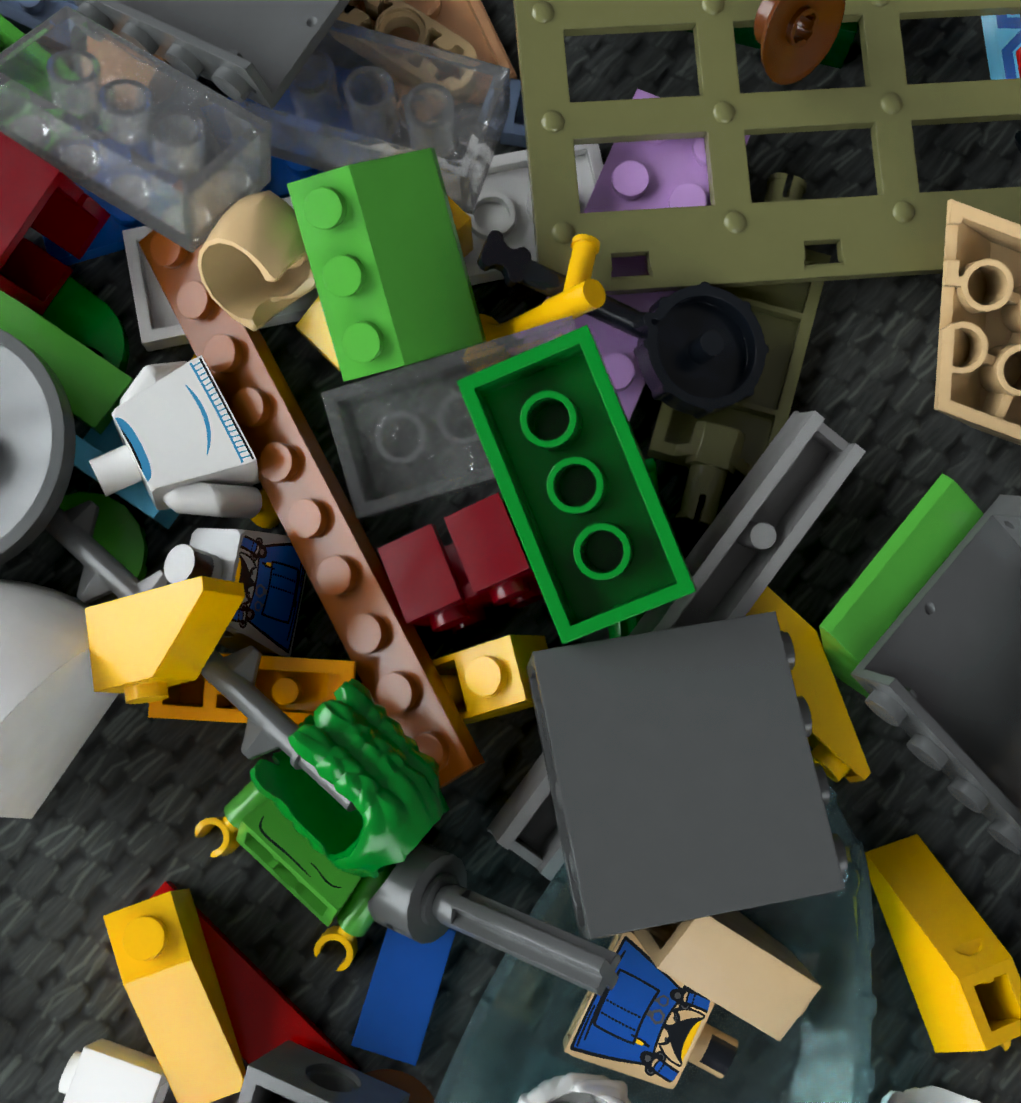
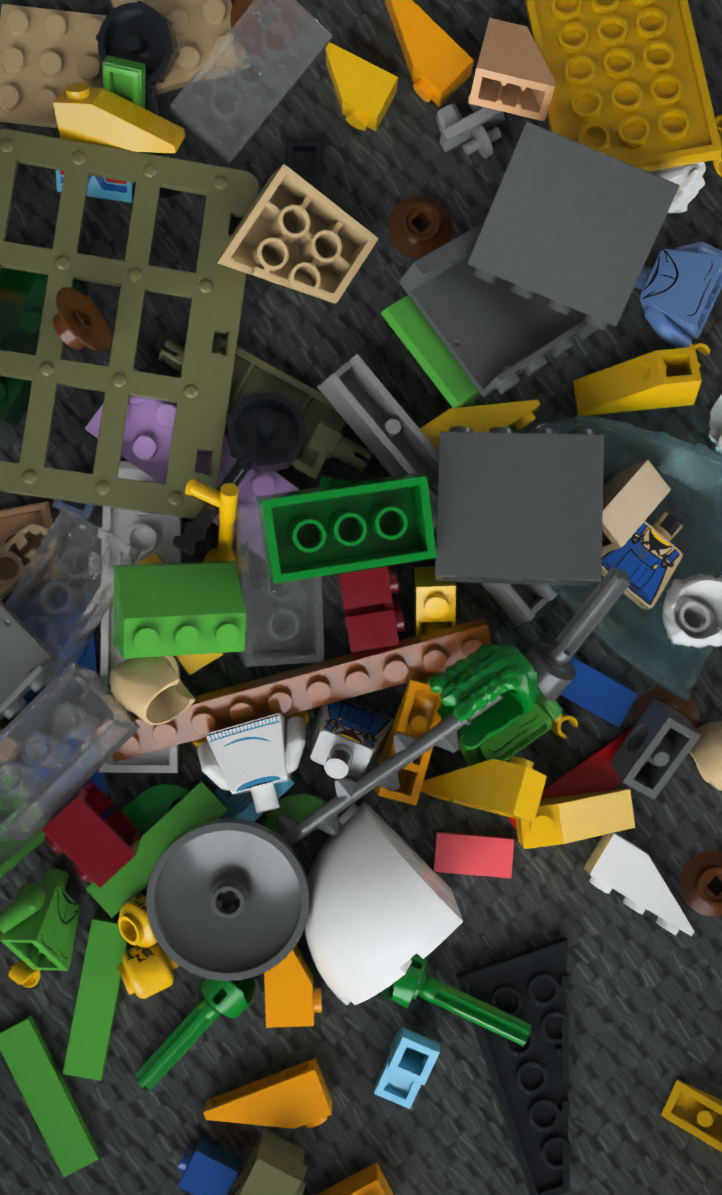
camera: 80 degrees left, 10 degrees up
(92, 842) = (473, 854): none -> coral tile
(159, 636) = (380, 787): yellow slope -> none
(198, 841) = (492, 786): none -> yellow slope

